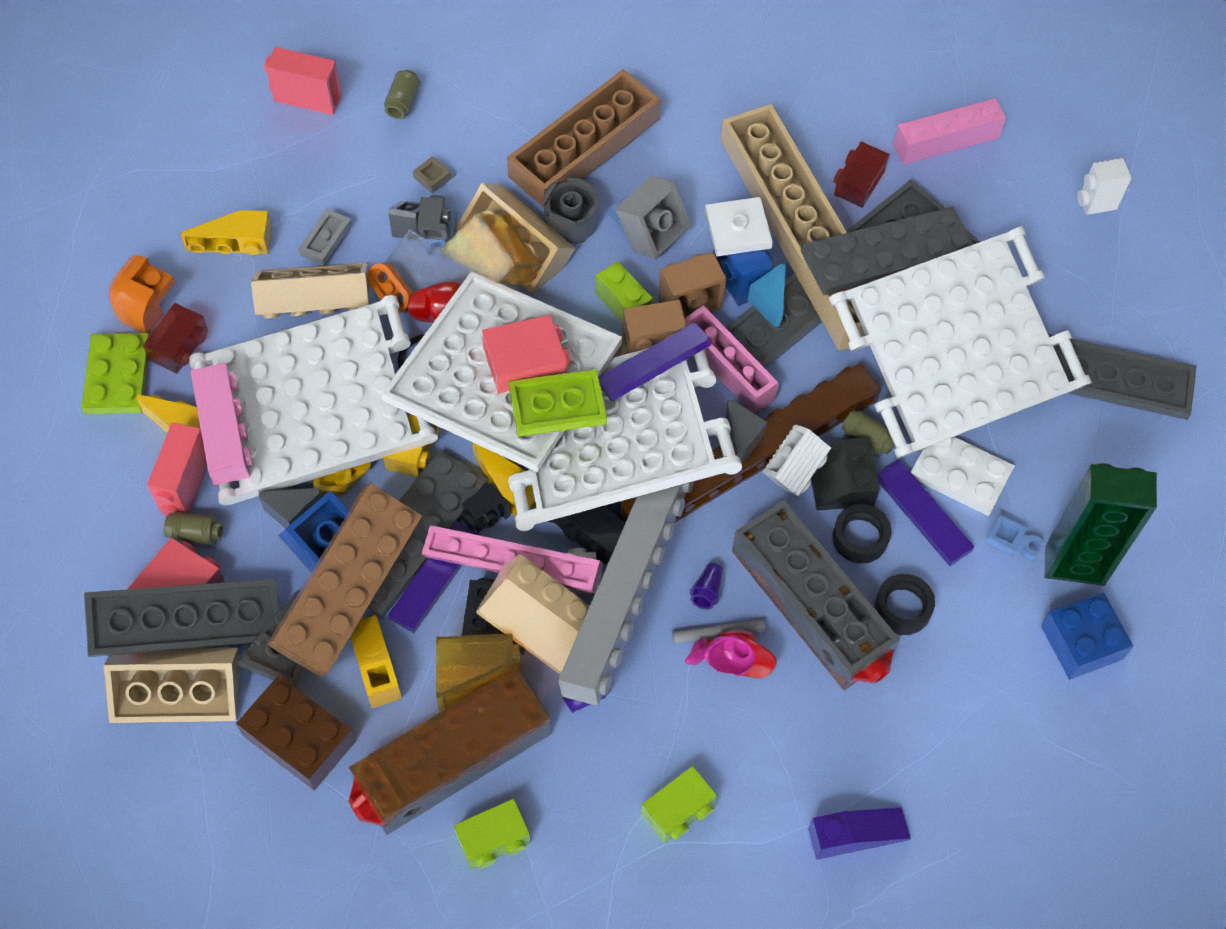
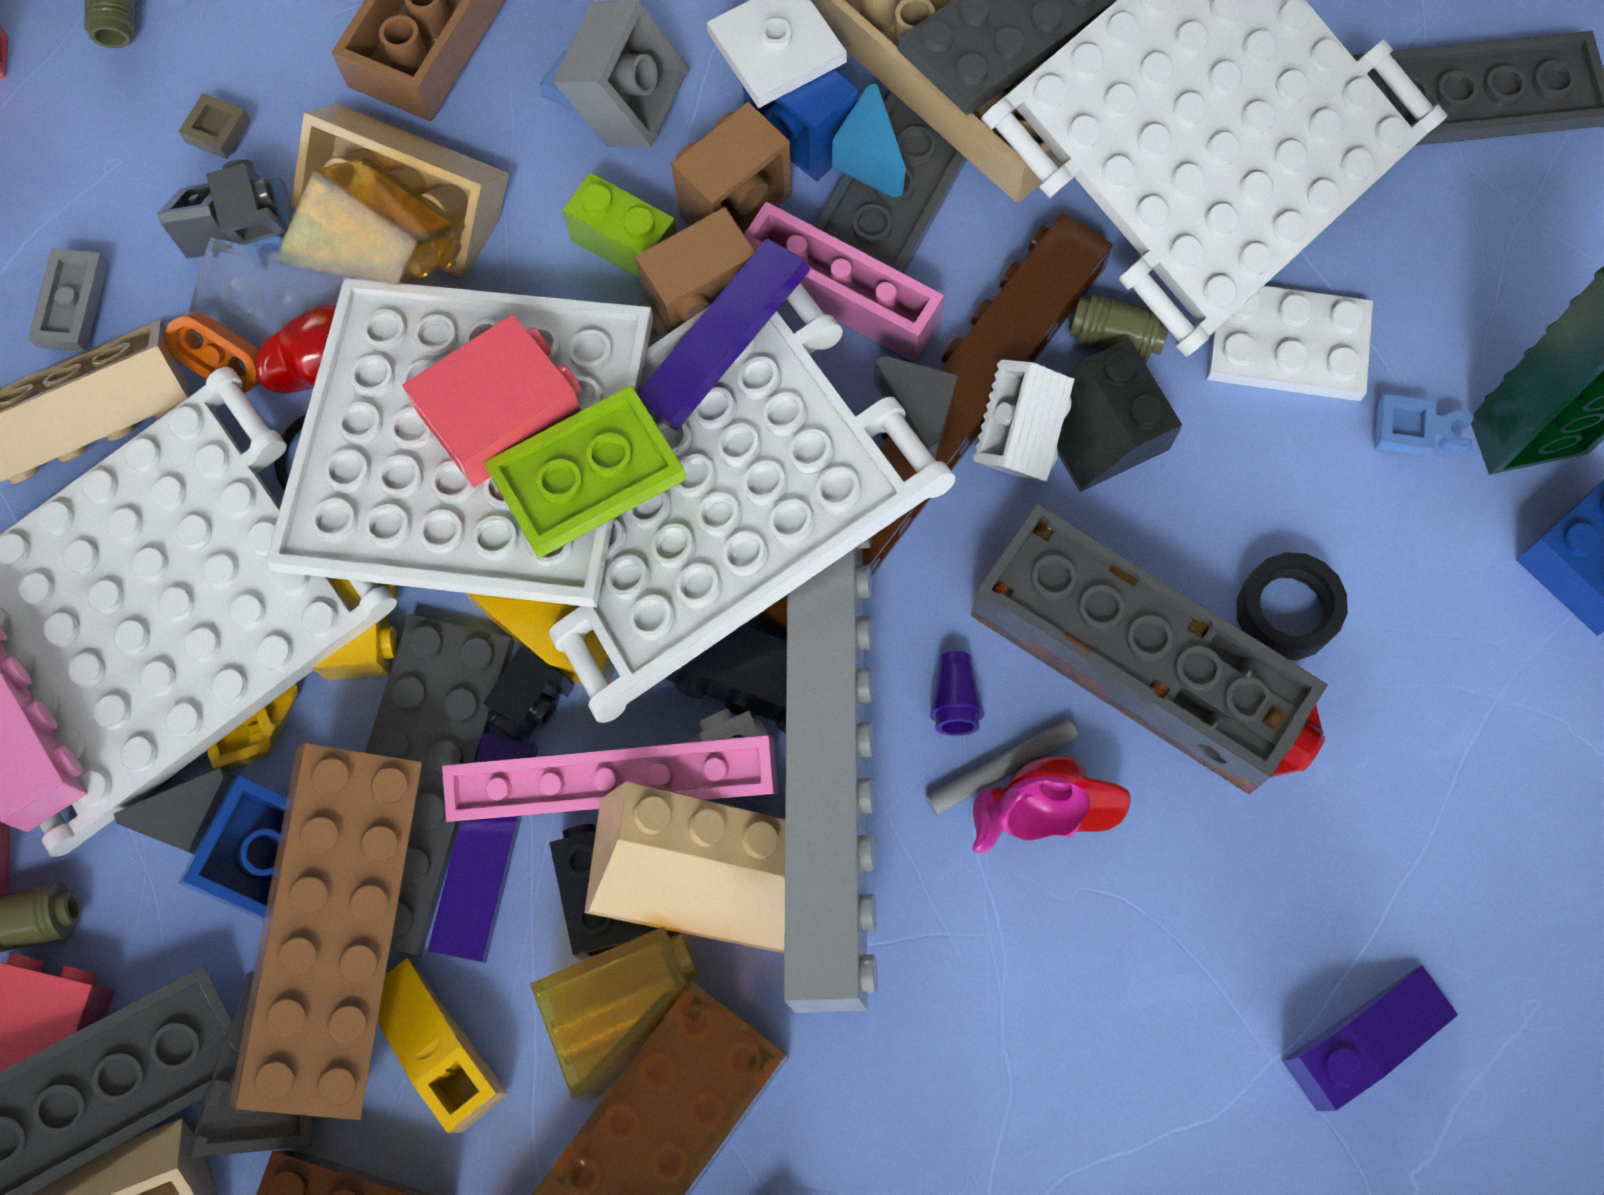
camera: 15 degrees left, 10 degrees up
(572, 209) = (477, 106): dark grey brick -> none
(679, 805) = (1060, 1111): lime brick -> none
(869, 514) = (1187, 472): black tyre -> none
(924, 512) = (1260, 433): dark purple tile -> none

